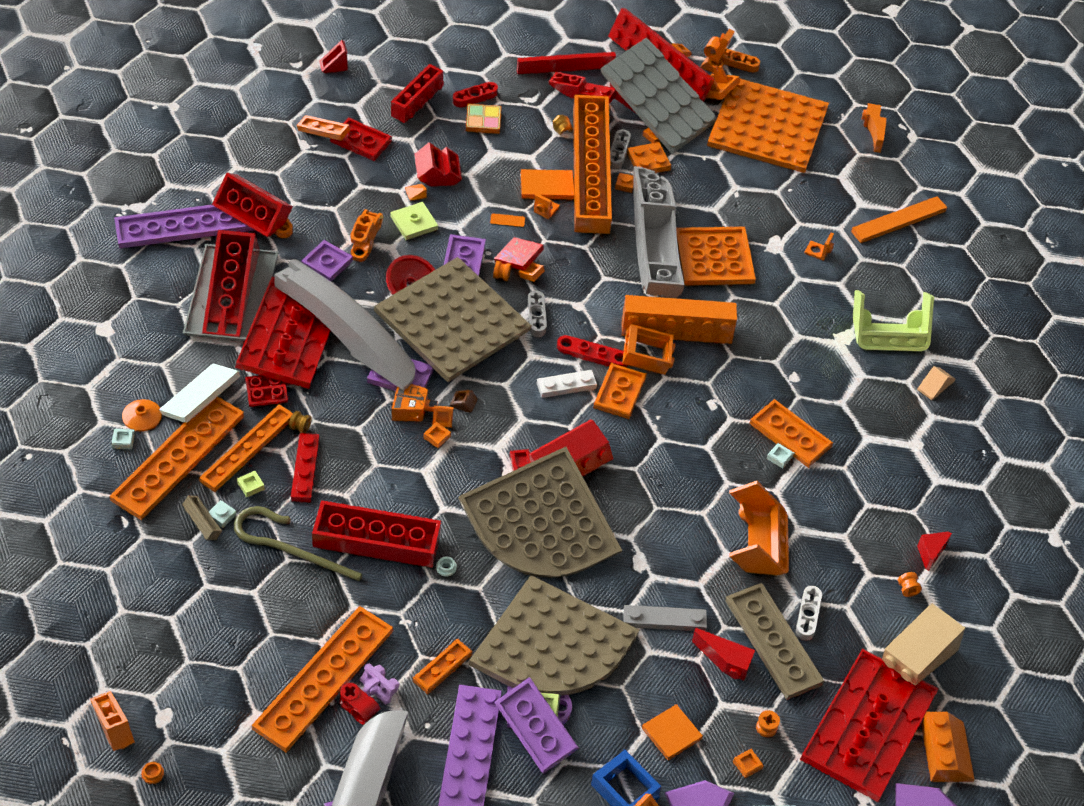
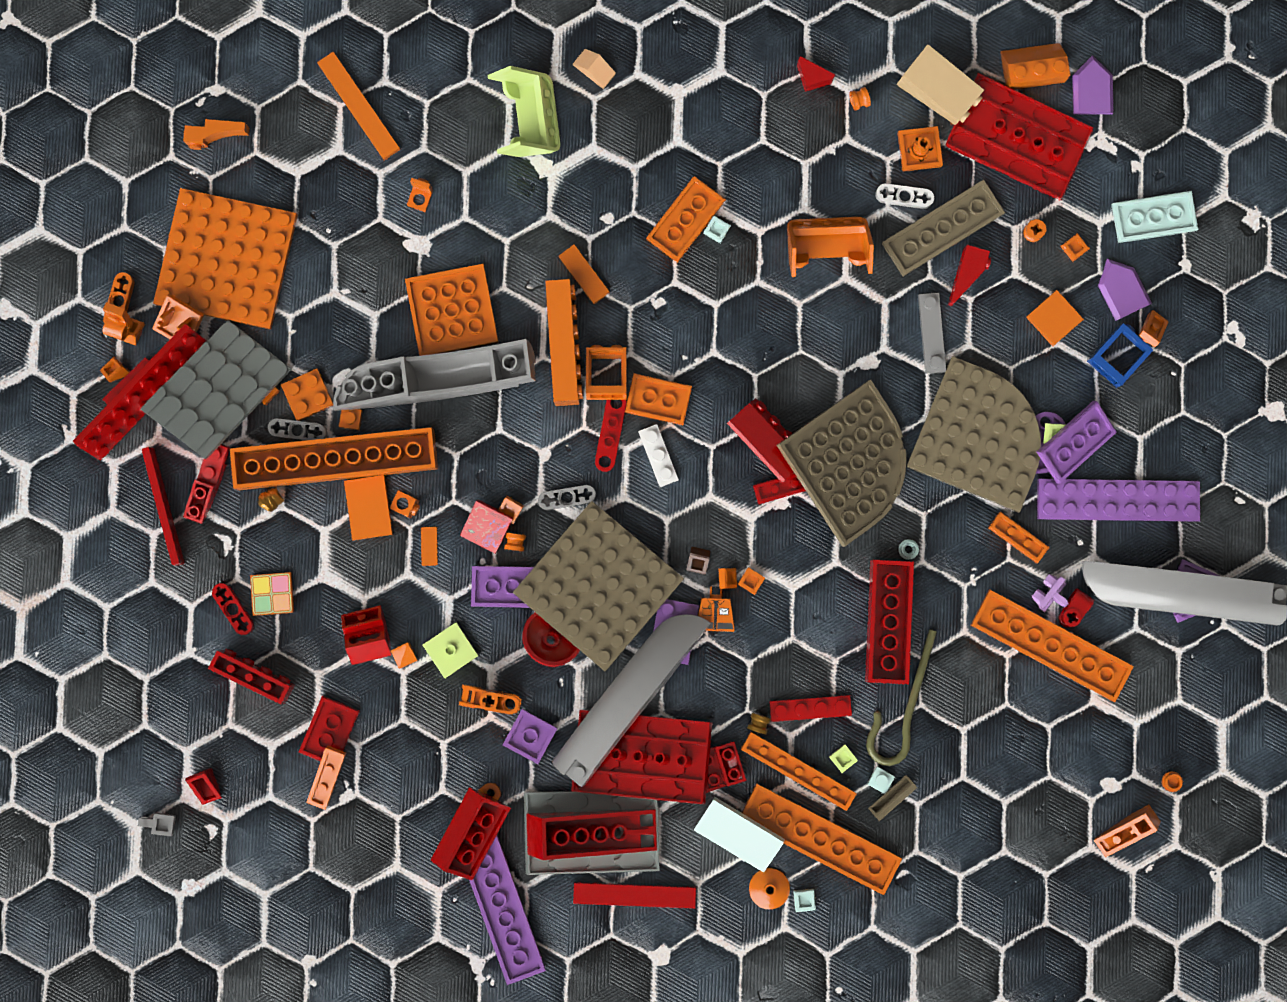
camera: 90 degrees left, 35 degrees up
(165, 316) = (634, 895): none -> red tile
(311, 33) = (161, 823): none -> light grey plate
(742, 351) = (584, 274): none -> orange tile
(857, 624) = (919, 149): none -> orange plate

